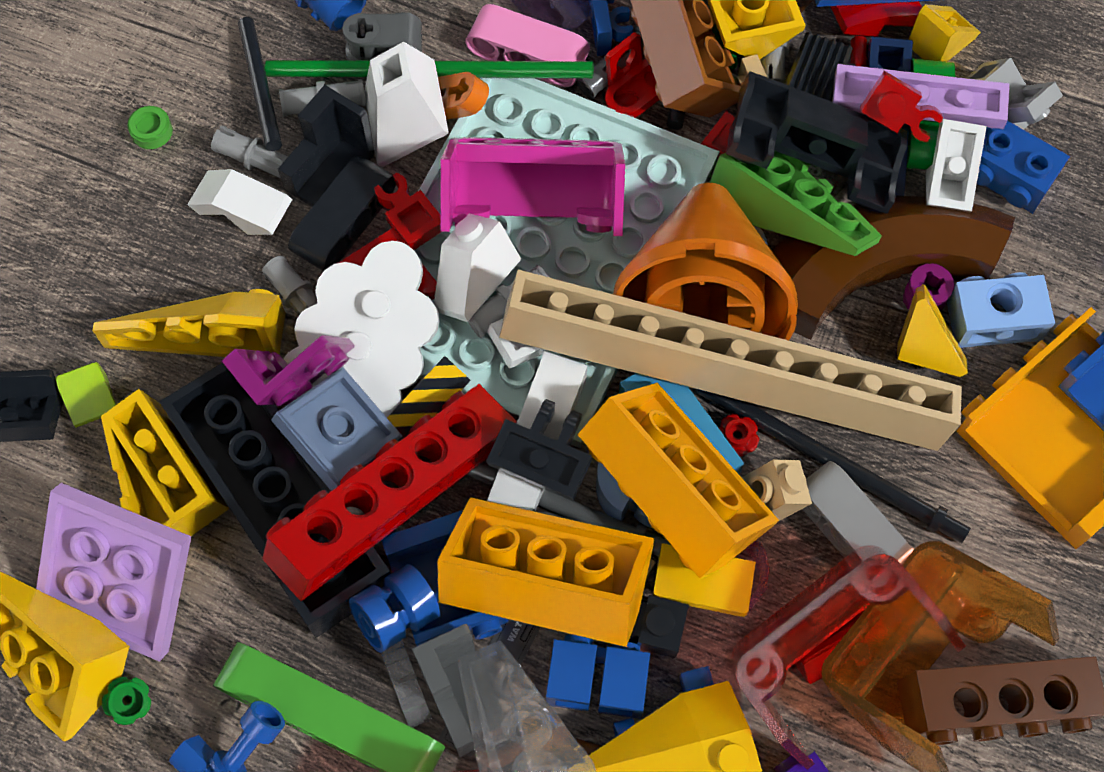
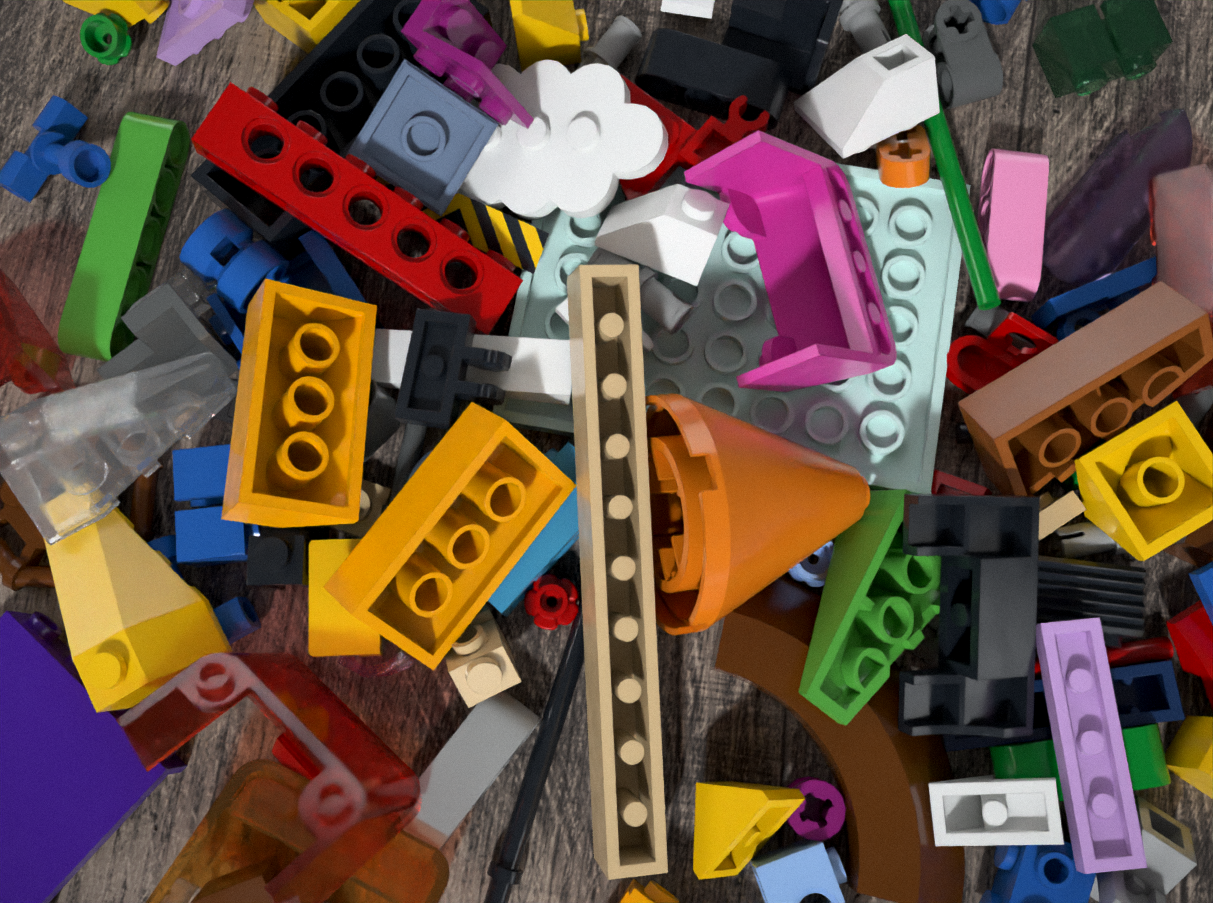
camera: 80 degrees right, 10 degrees up
(896, 103) = (1059, 710): red plate -> none

